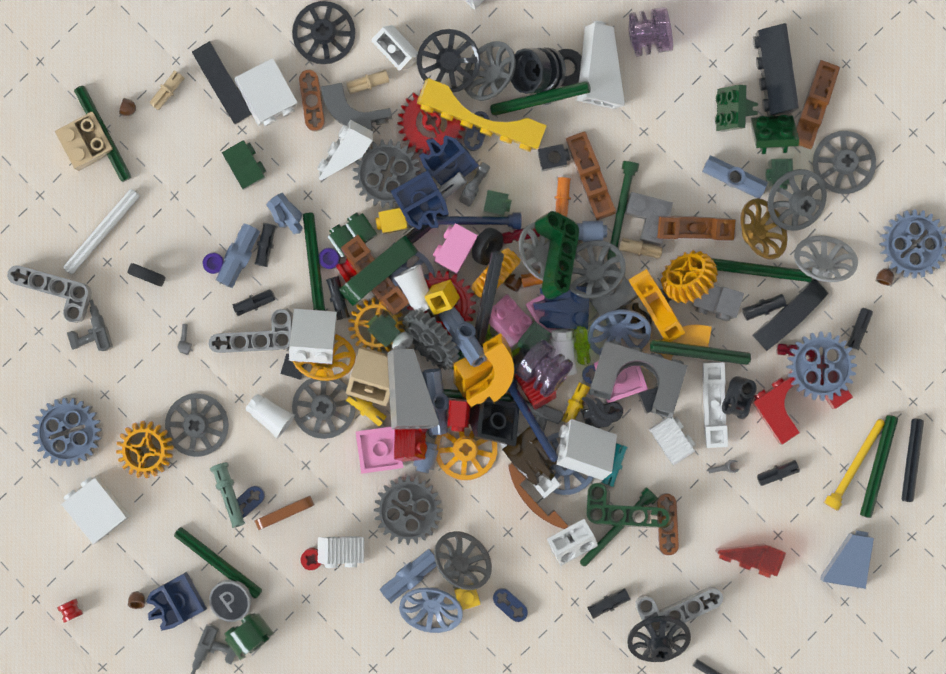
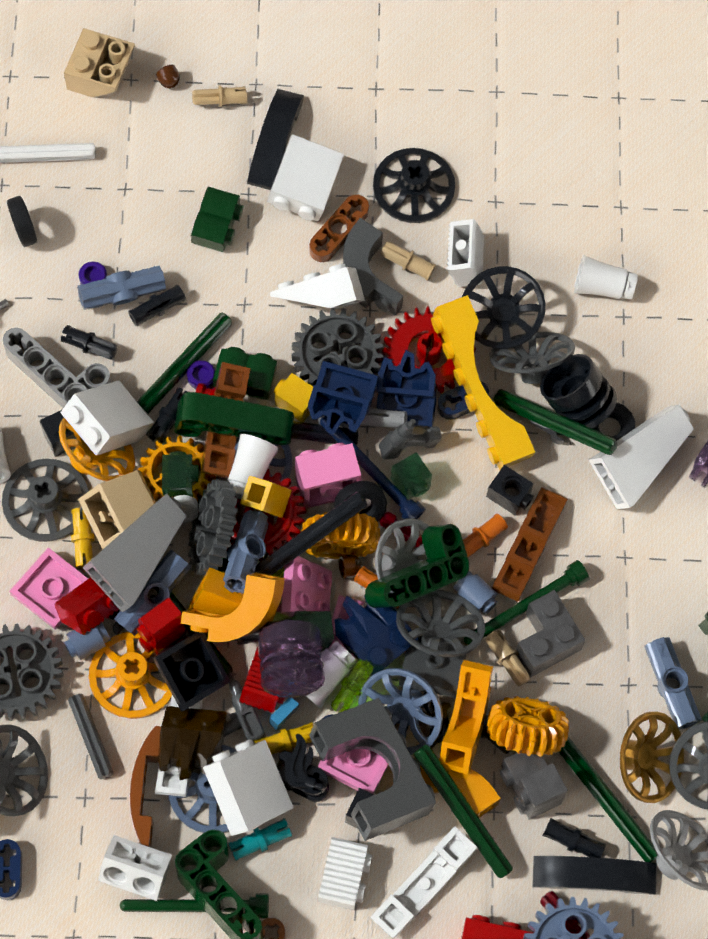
camera: 45 degrees right, 20 degrees down
(114, 155) = (114, 99): dark green axle -> none
(285, 213) = (206, 293): sand blue rock -> none
(479, 500) = (91, 736): none -> dark grey axle
(532, 421) = (241, 657): dark blue piece -> none
(561, 394) = (283, 713): none -> dark azure tile
(696, 227) = (582, 689): dark orange slope -> none
(739, 397) = (454, 902): black piece -> none

